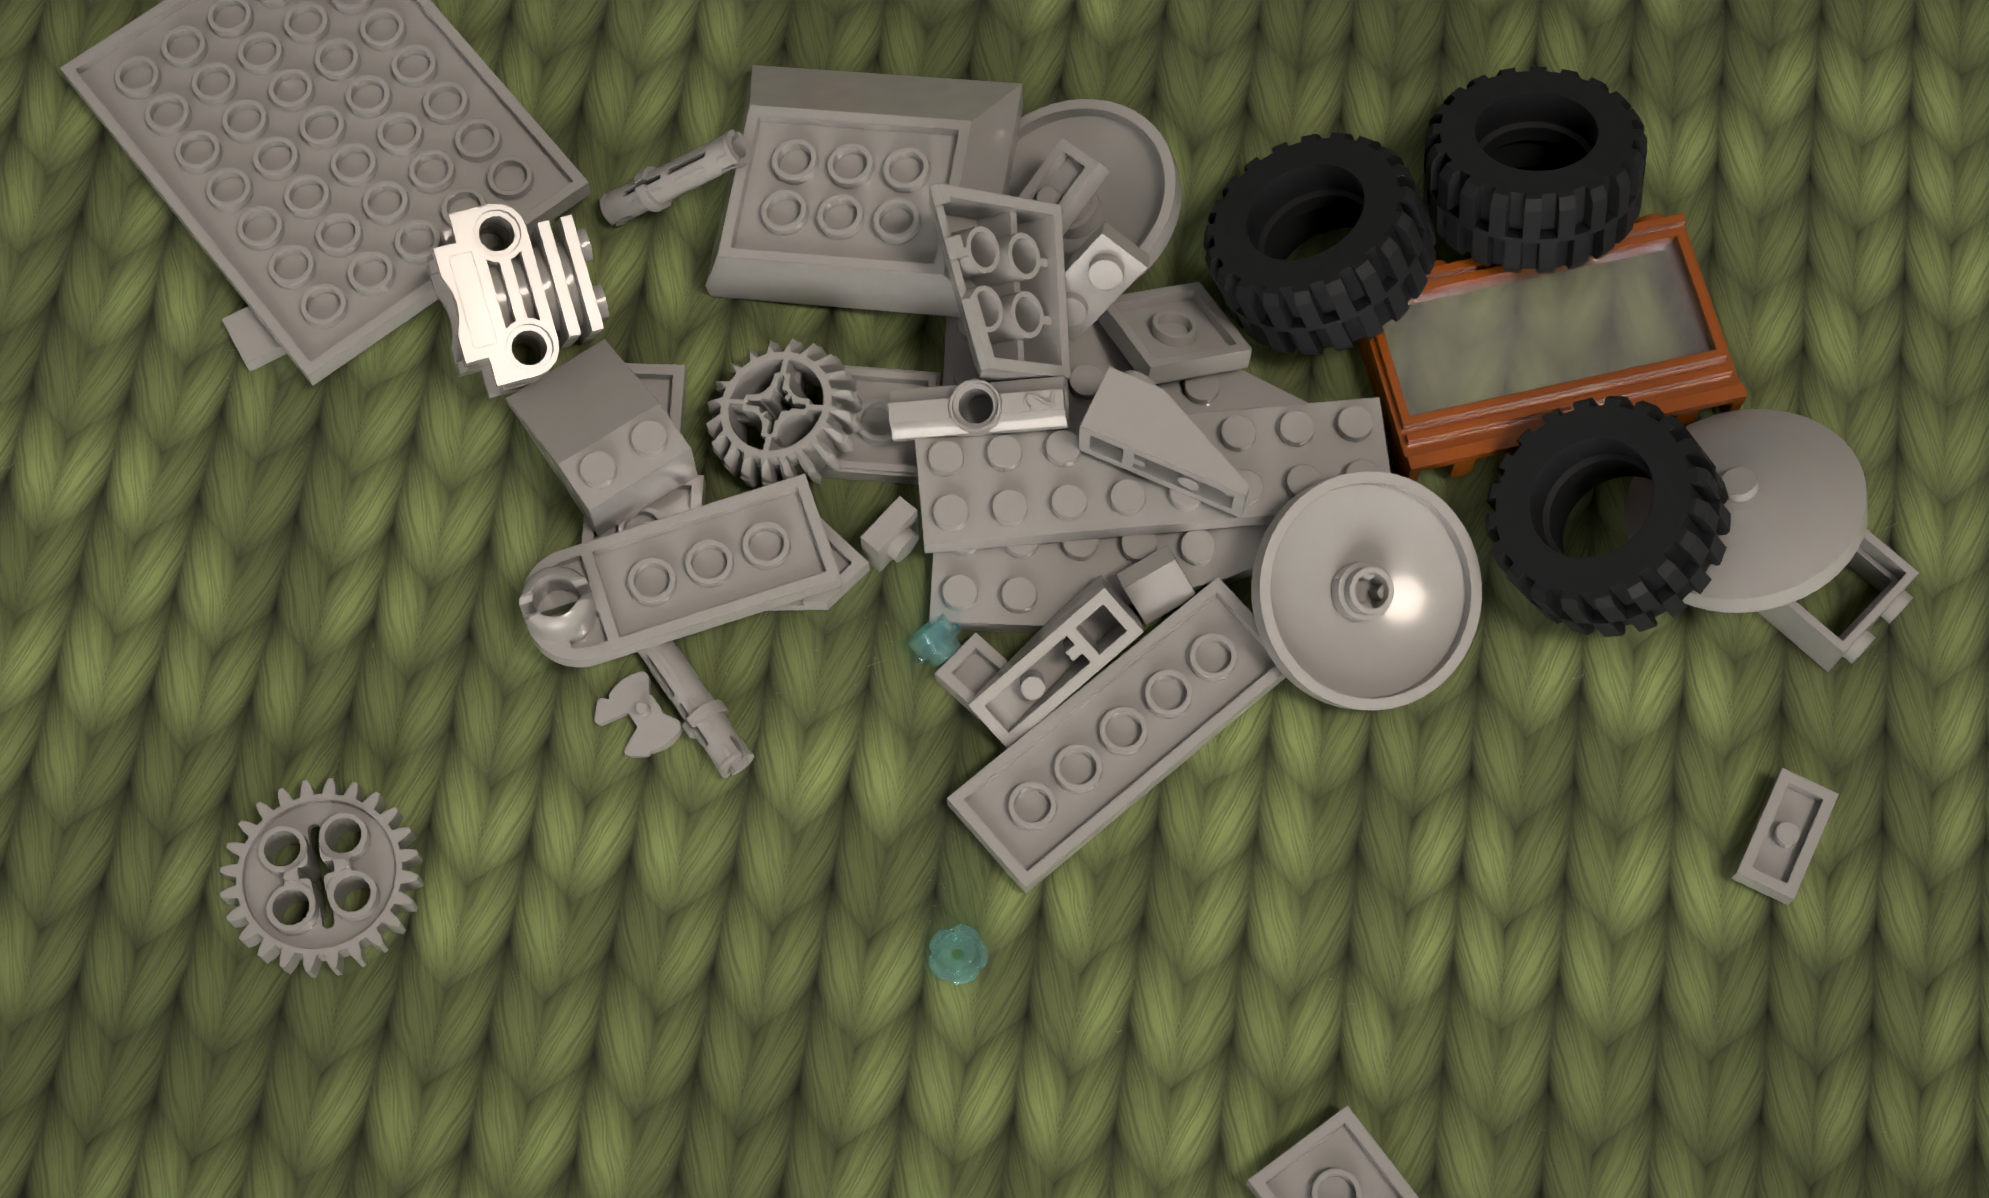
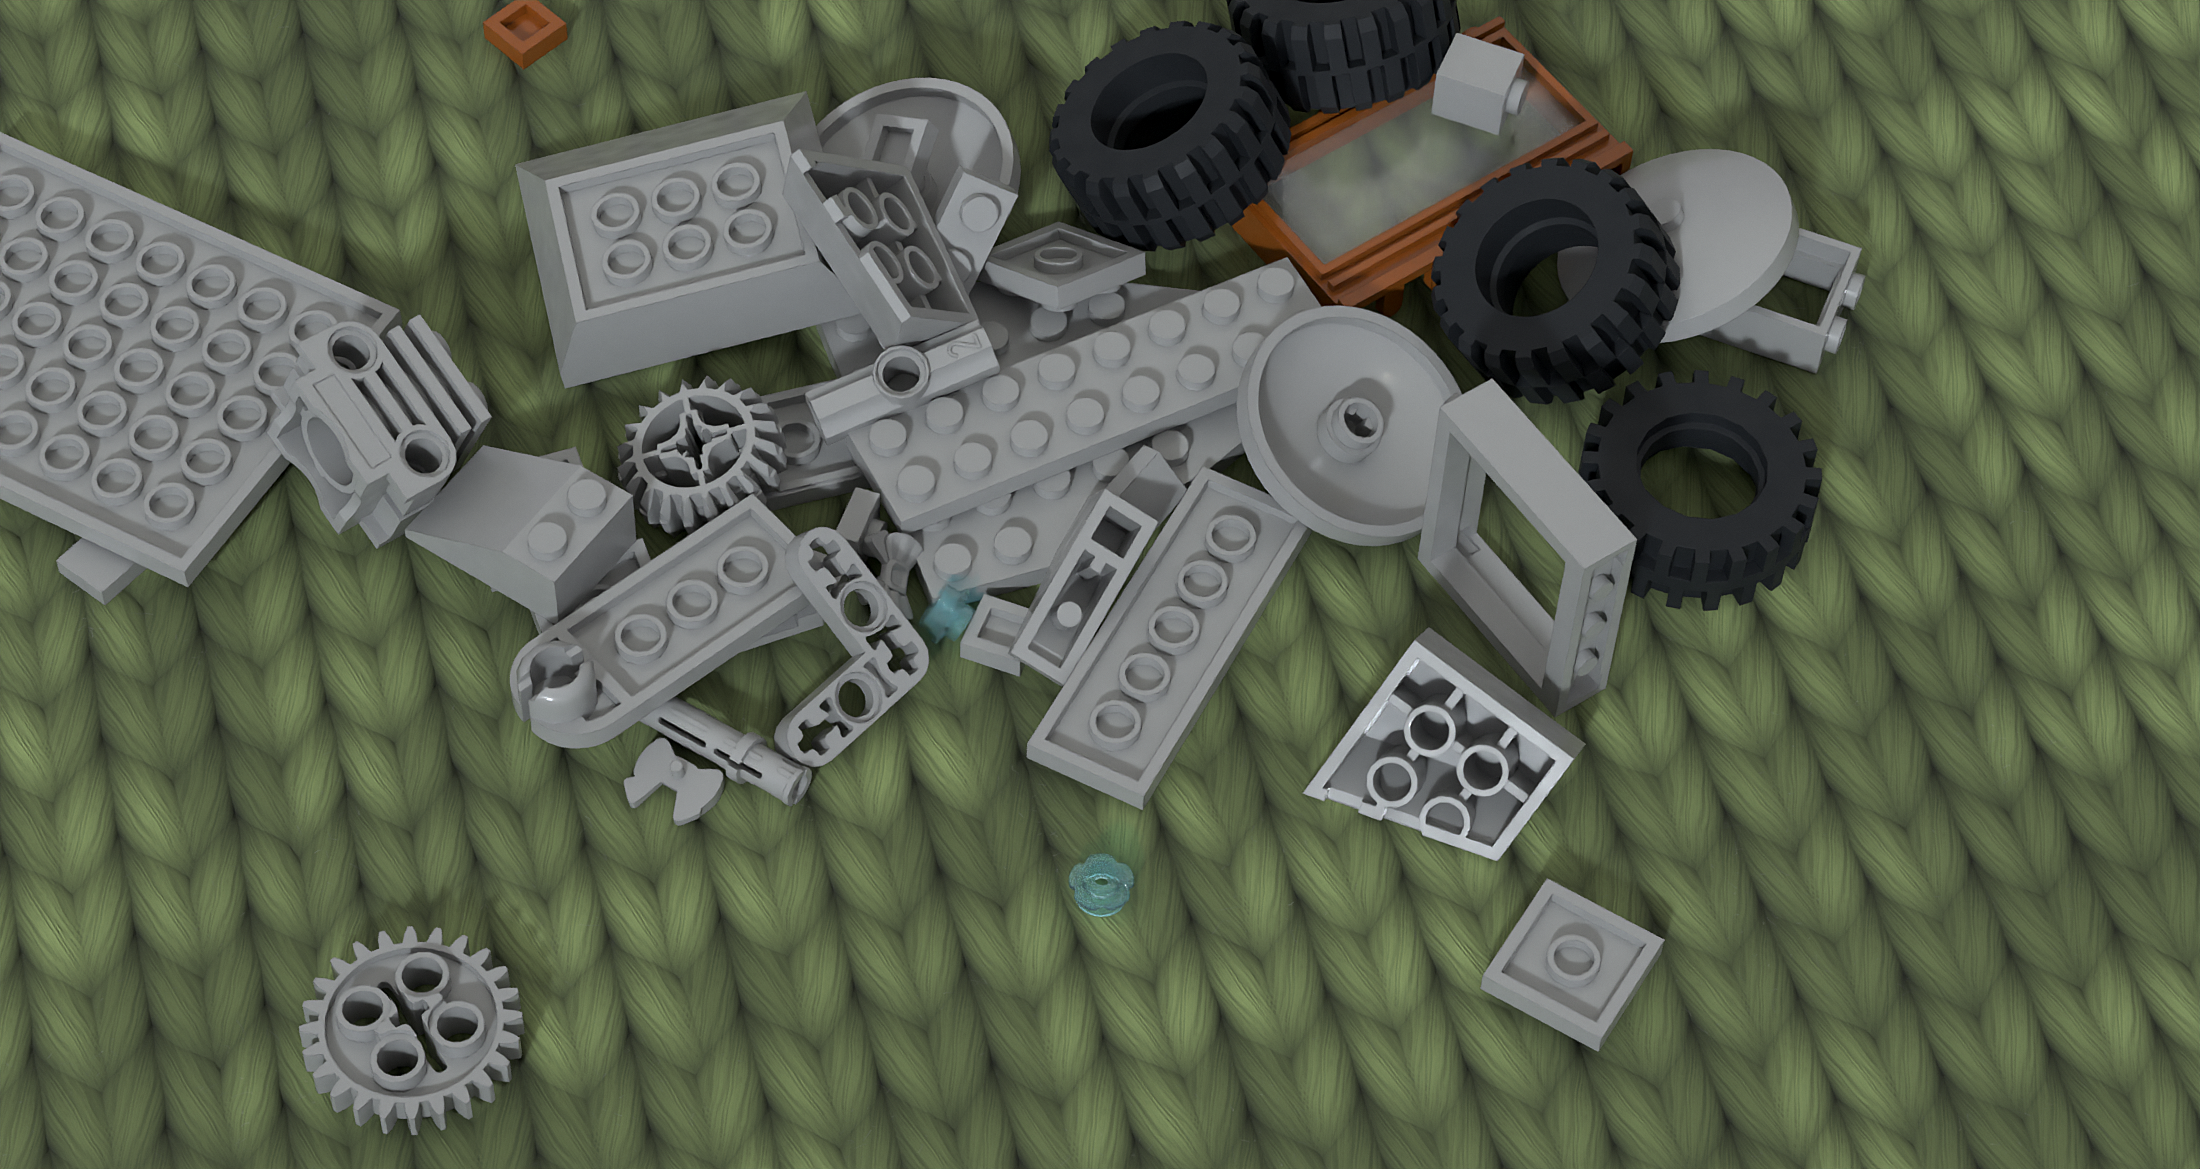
camera: 25 degrees left, 15 degrees down
(657, 187) = (473, 293): light grey pin -> none
(838, 670) = (868, 661): none -> light grey beam
(893, 604) = (897, 555): none -> light grey piece
(1151, 436) = (1096, 347): light grey slope -> none
(1316, 947) = (1448, 752): none -> light grey wedge
(1453, 787) = (1556, 658): none -> light grey window
(1622, 830) = (1695, 553): none -> black tyre
(1627, 285) = (1479, 84): none -> light grey brick
(1785, 836) = (1846, 519): light grey plate -> none

